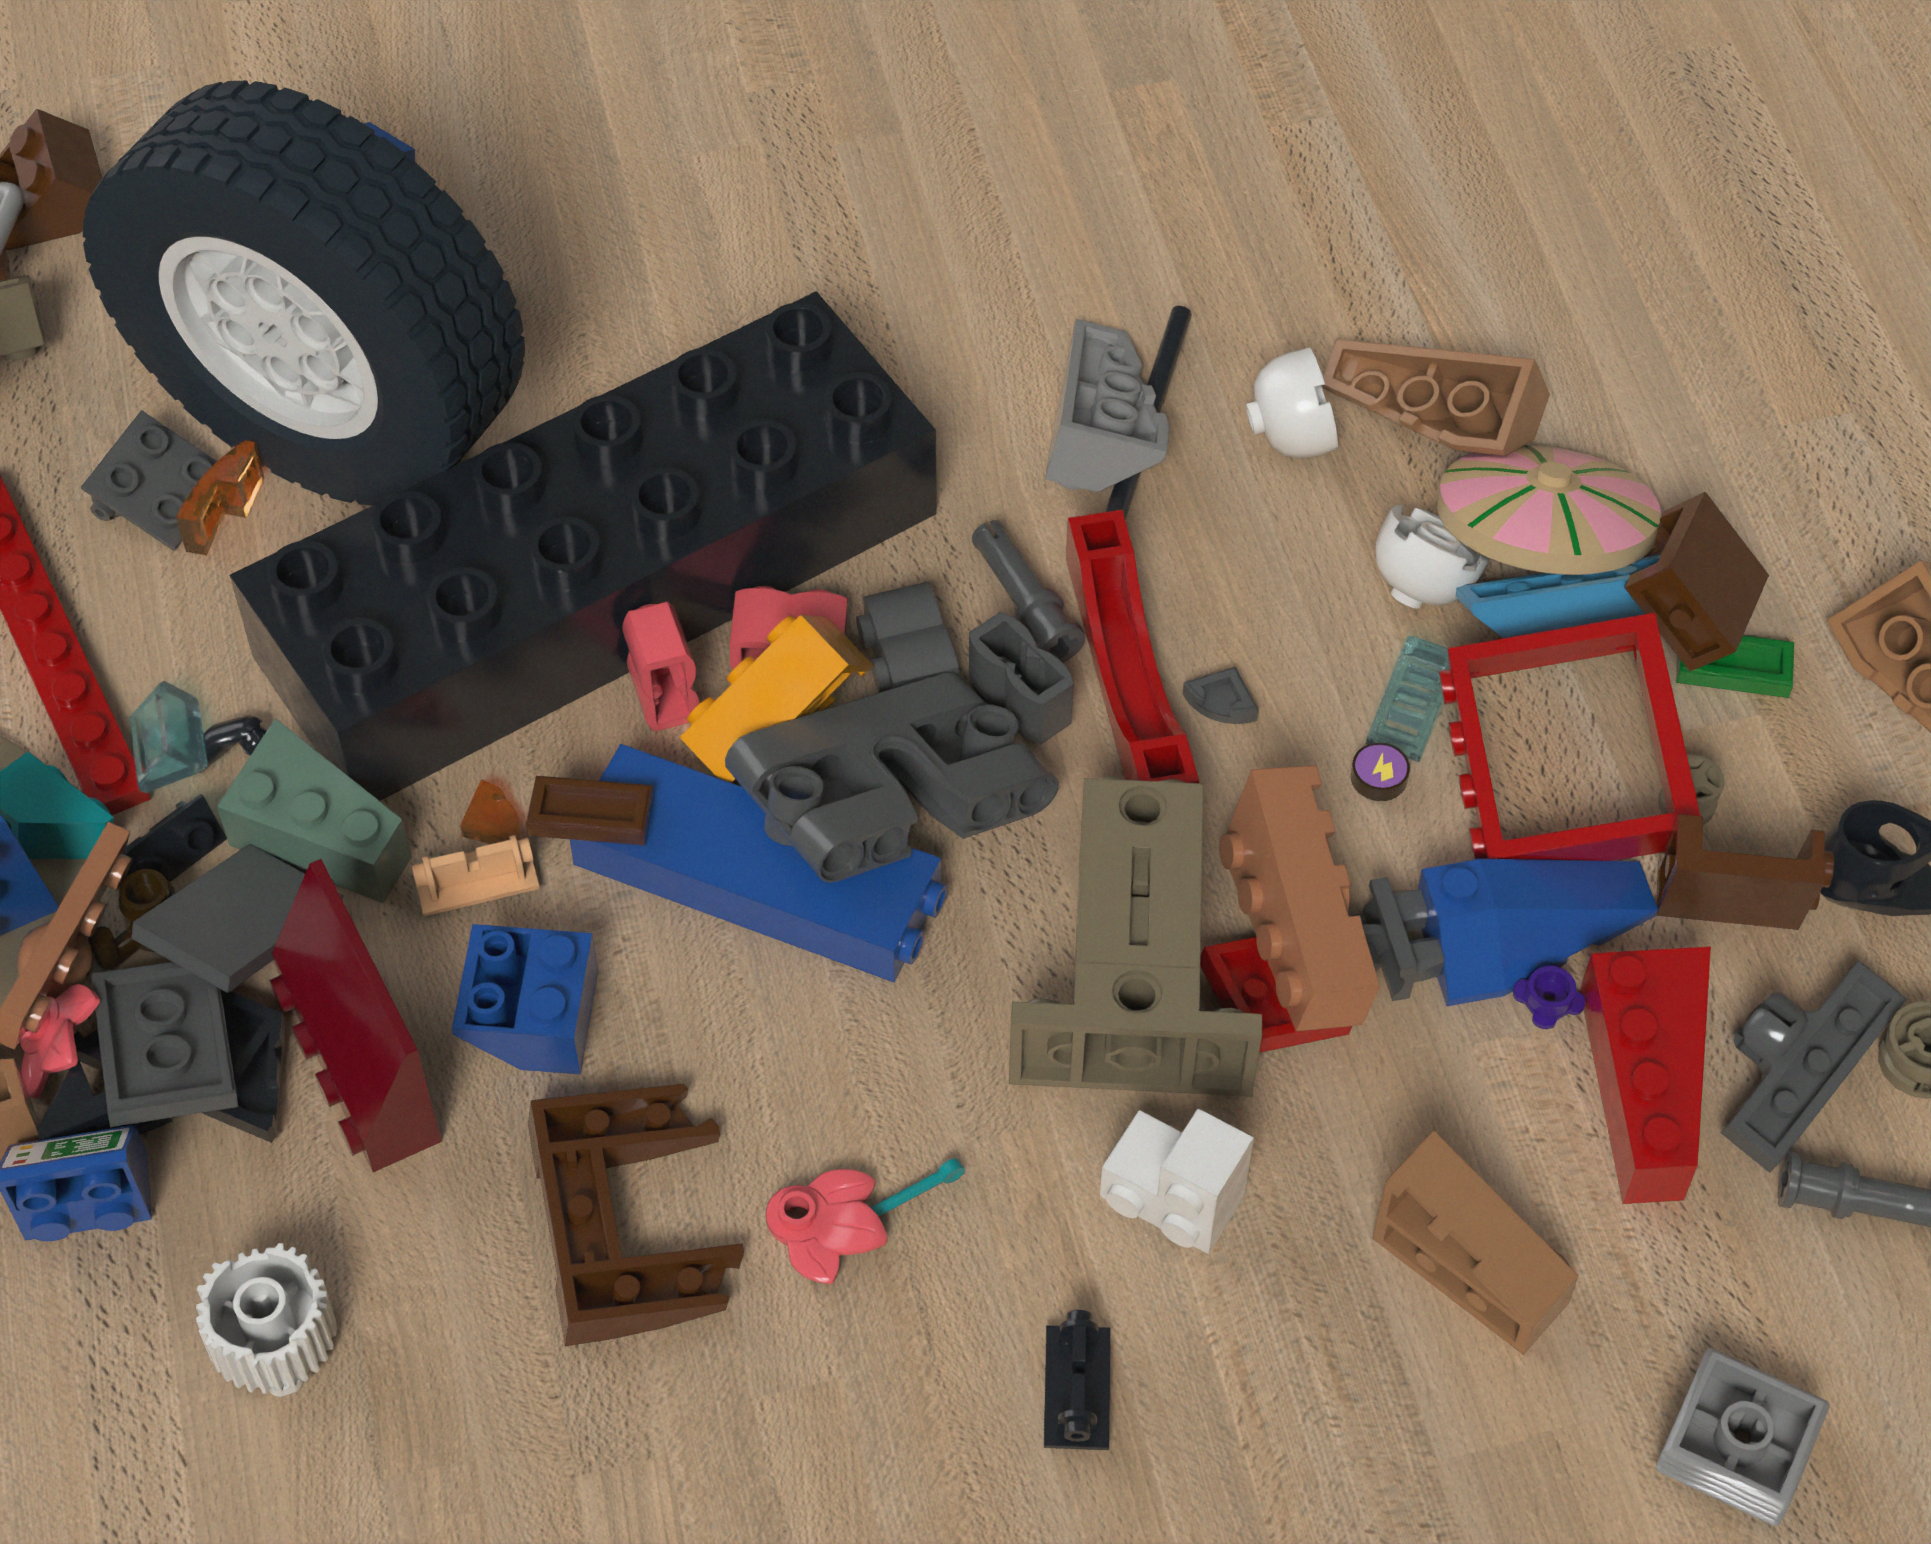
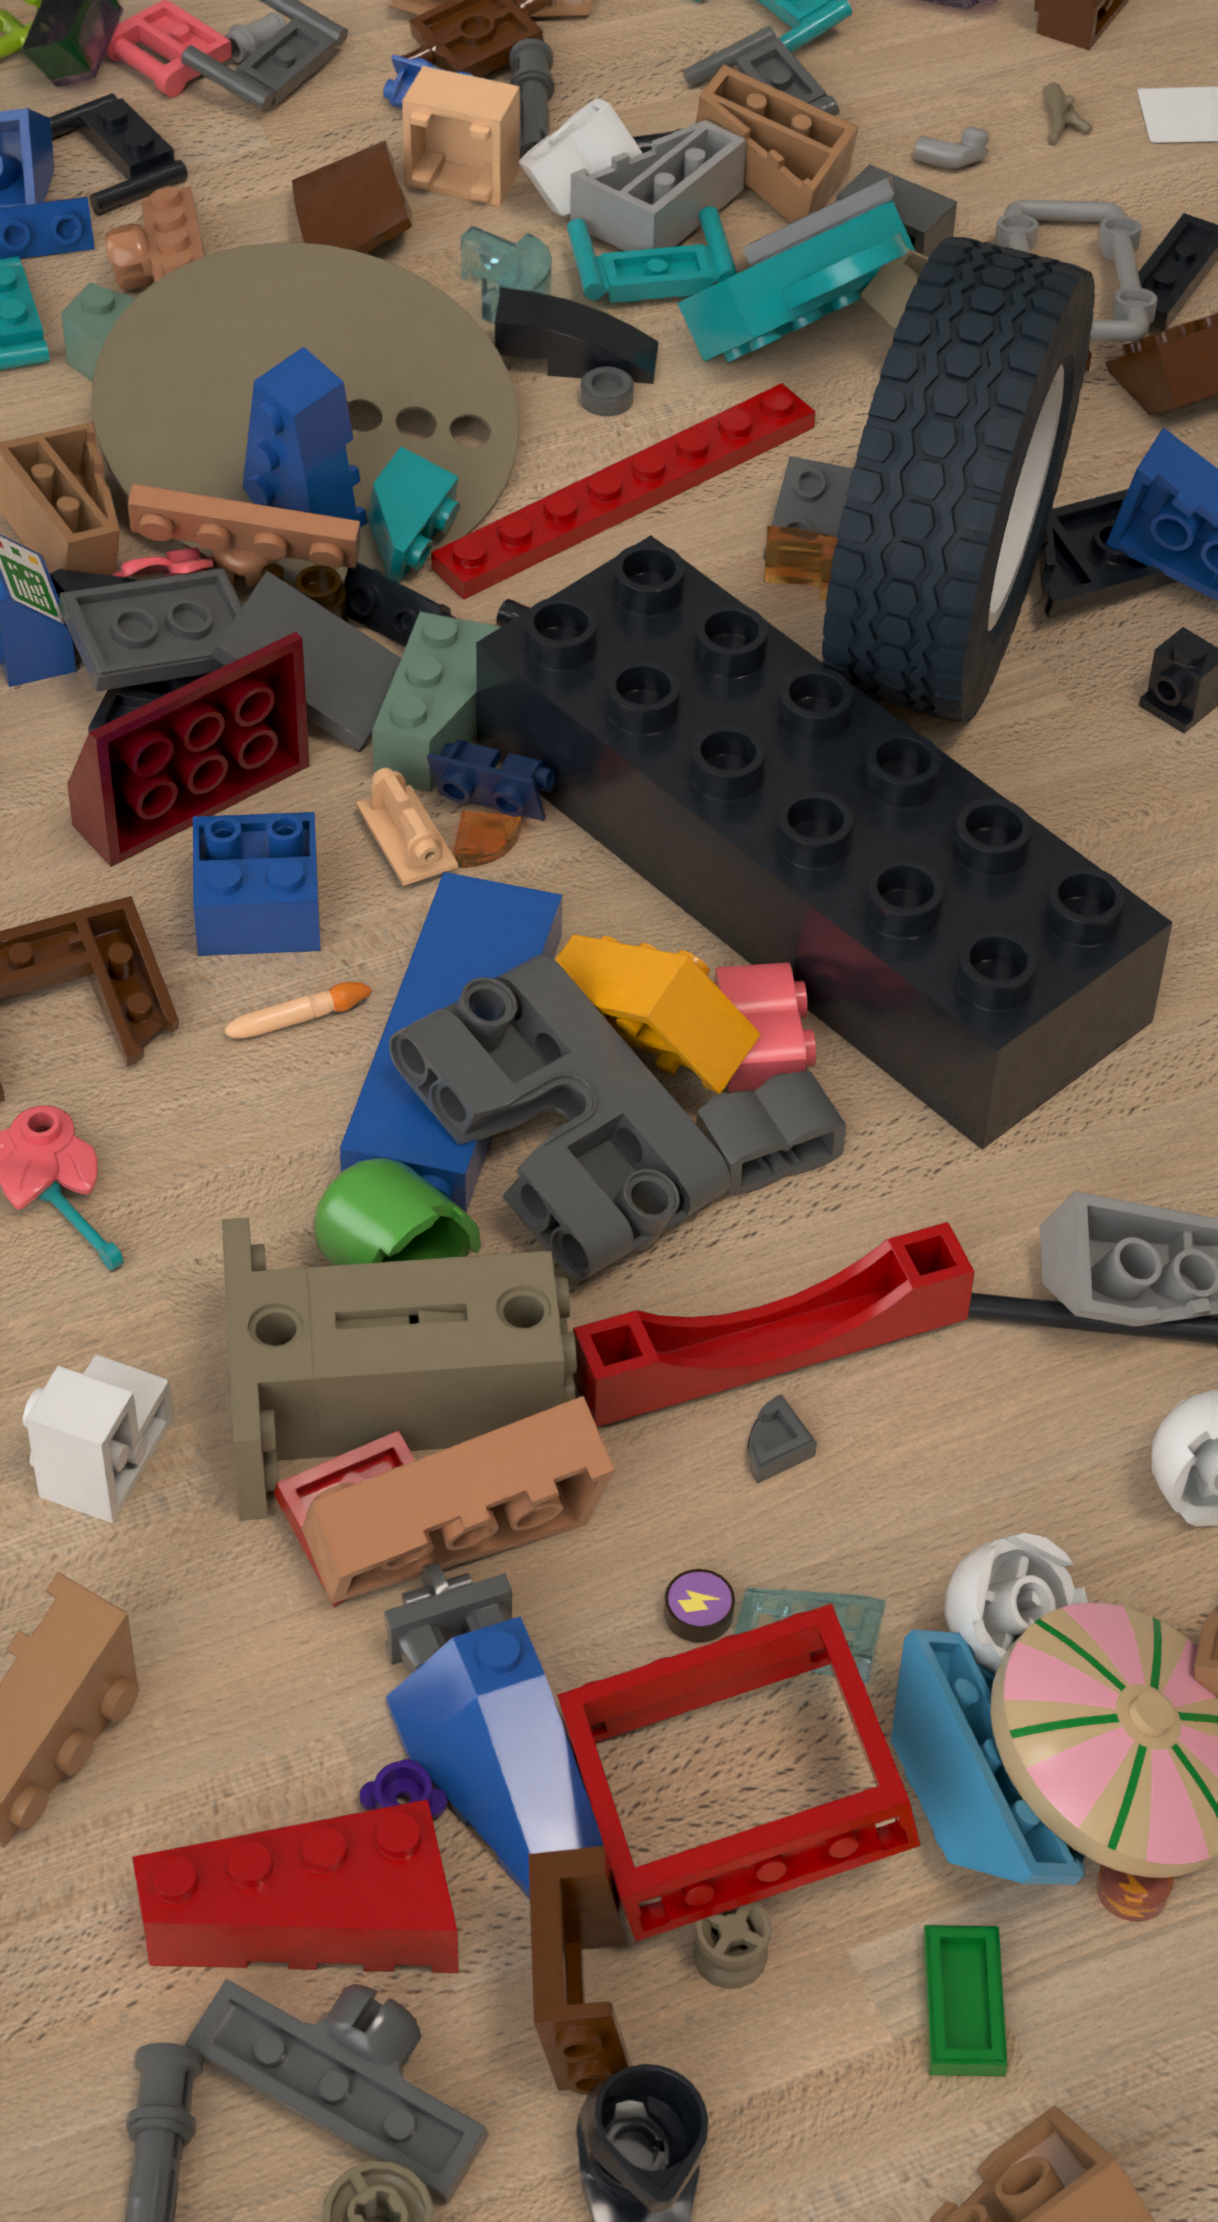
camera: 80 degrees right, 5 degrees down
(167, 738) = (514, 583): clear light blue slope -> none
(455, 772) = (469, 775): none -> dark blue hinge
(590, 810) = (466, 878): reddish brown tile -> none
(660, 665) = (671, 902): coral brick -> none
(680, 990) = (298, 1010): none -> light nougat piece
(994, 925) = (389, 1215): none -> bright green cylinder
(1020, 677) = (731, 1224): dark grey brick -> none
(1036, 606) = (852, 1238): dark grey pin -> none
(1701, 584) = (1037, 1907): reddish brown panel -> none

